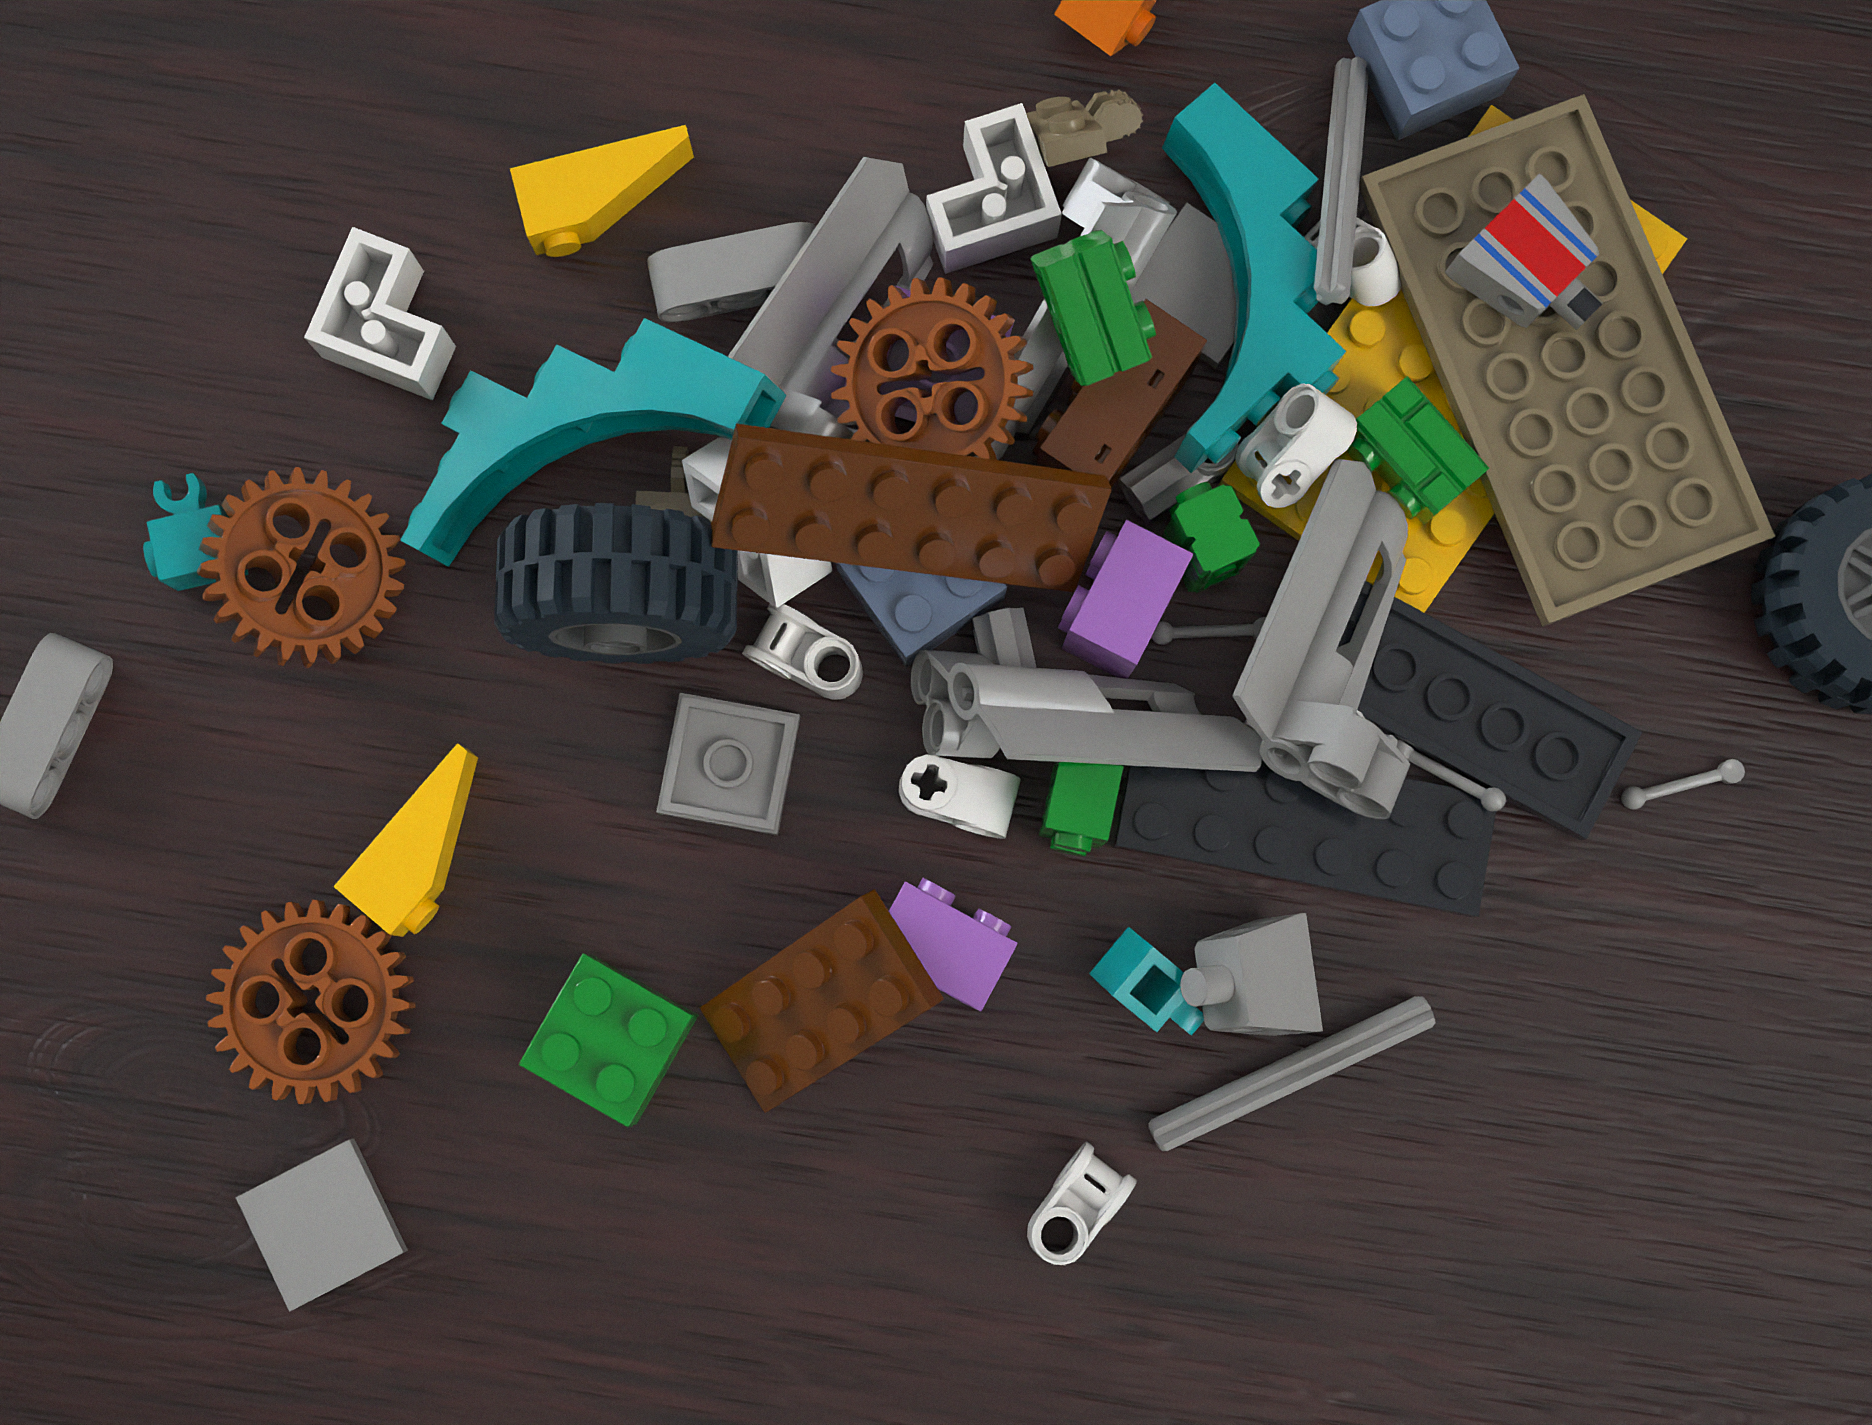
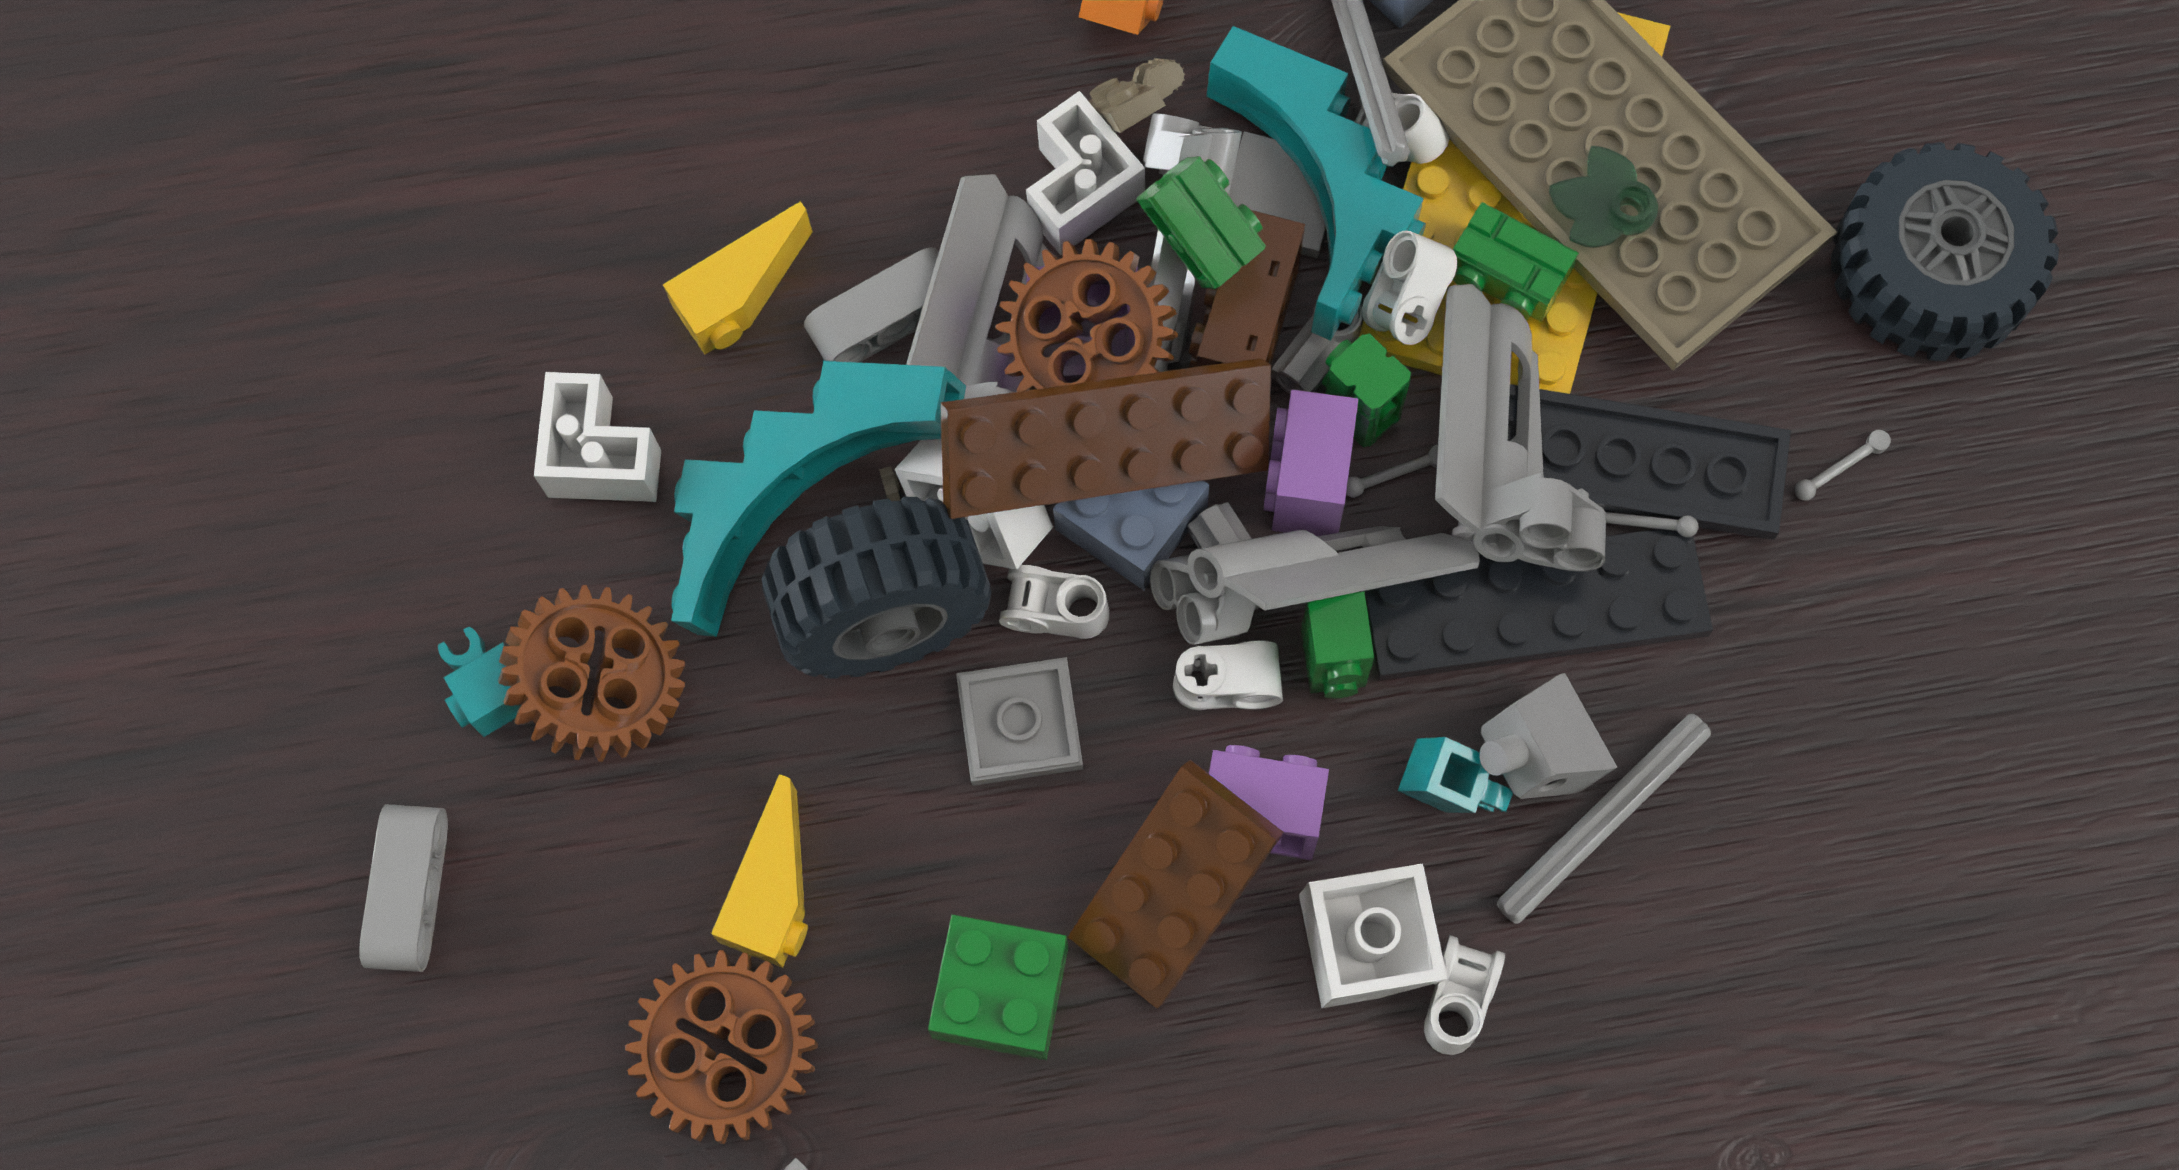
camera: 10 degrees left, 10 degrees down
(1006, 1120) = (1372, 935): none -> white slope
(1530, 259) = (1548, 76): torso -> none
(1531, 413) = (1597, 199): none -> clear green plate

